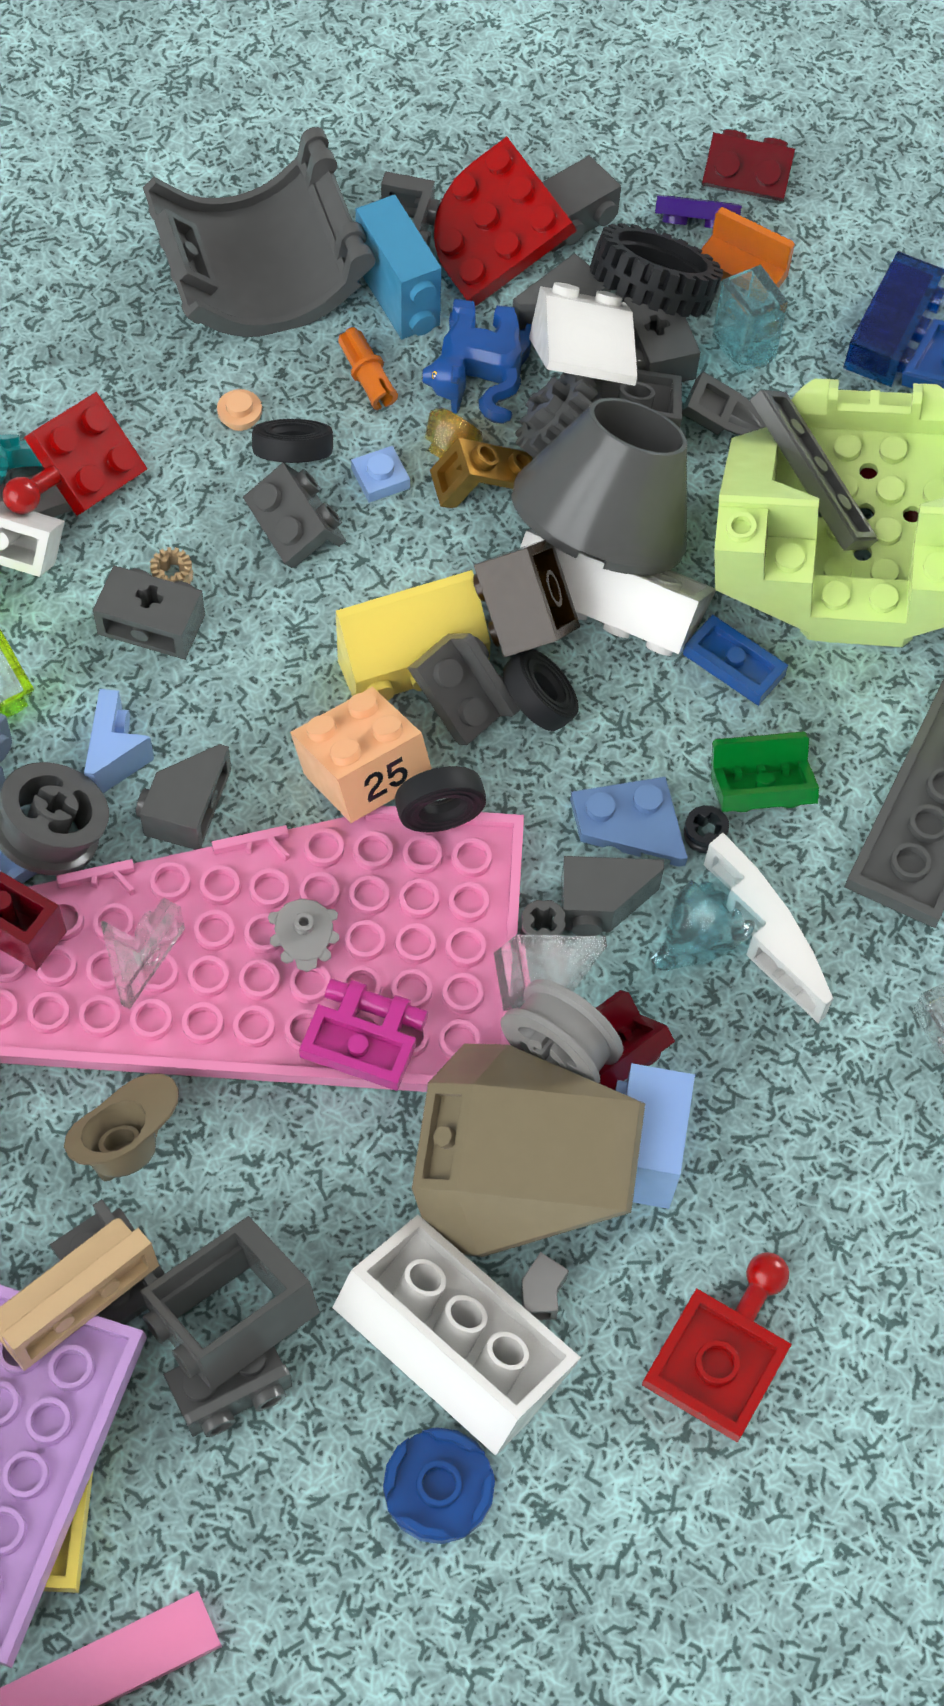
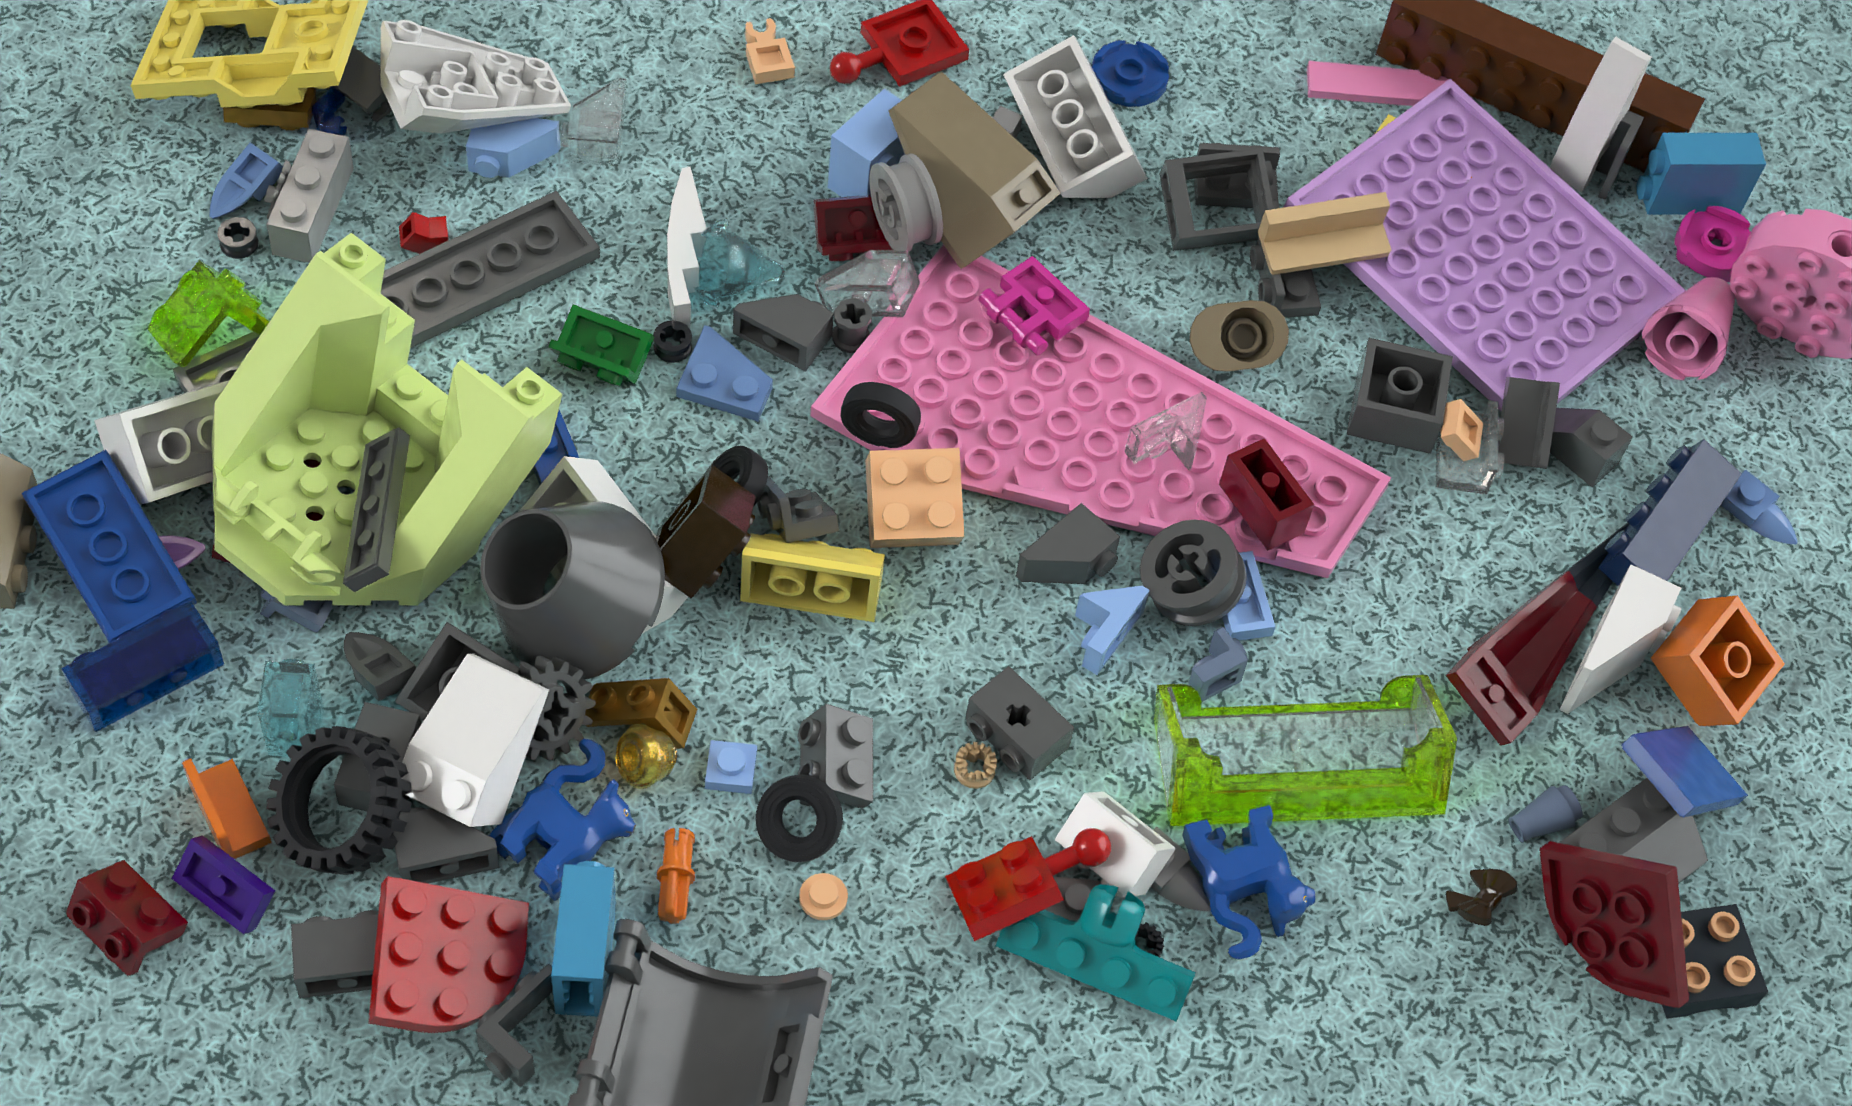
camera: 155 degrees left, 5 degrees down
(304, 932) = (1037, 397): light grey piece -> none
(860, 1237) = (768, 56): none -> light nougat plate

